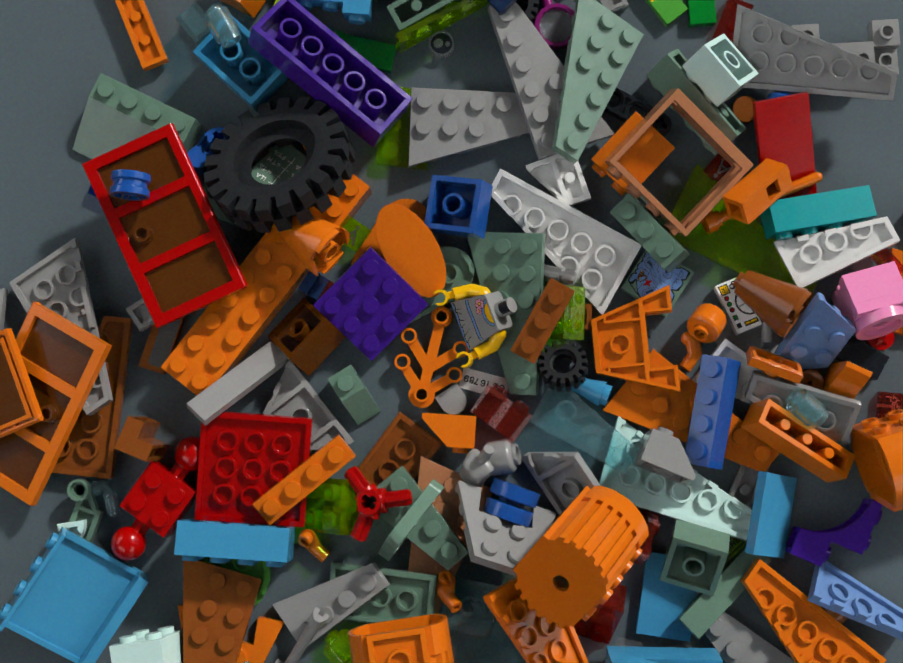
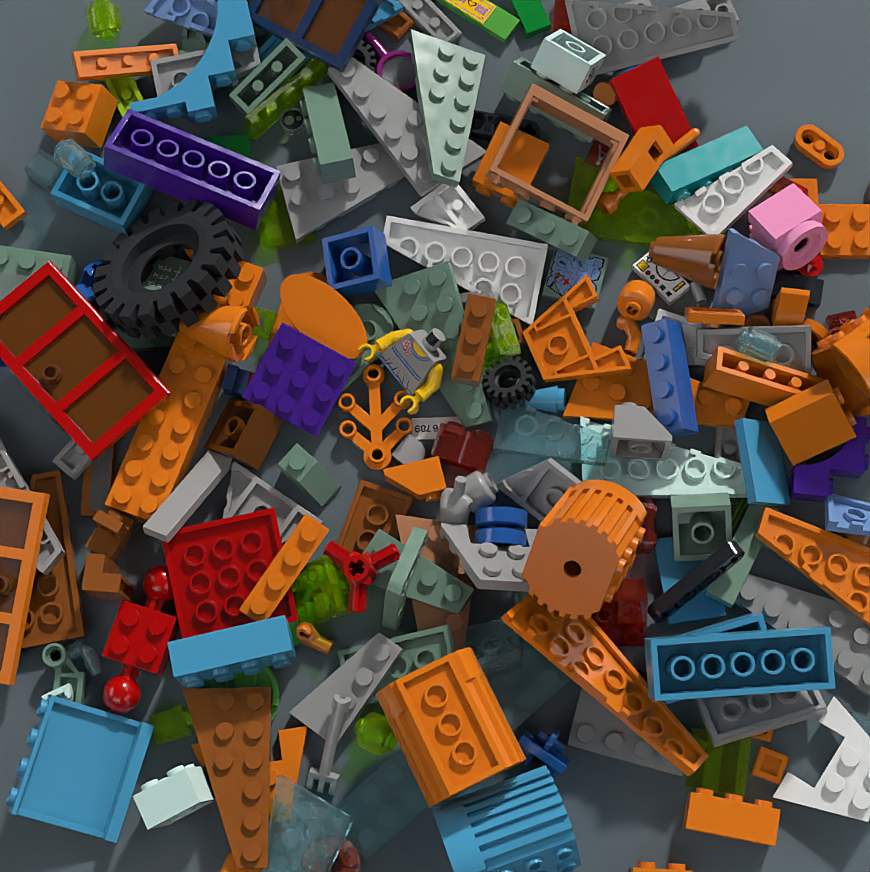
camera: 20 degrees left, 10 degrees down
(130, 185) = (26, 326): blue wheel -> none
(158, 395) = (111, 534): none -> dark orange brick
(165, 581) = (171, 724): none -> clear neon green bracket
(446, 591) = (463, 636): orange arm -> none
(470, 70) = (328, 132): none -> sand green brick
(672, 608) = (695, 581): none -> black beam
(830, 494) = (811, 422): none -> orange brick
(867, 406) = (818, 331): none -> orange tile

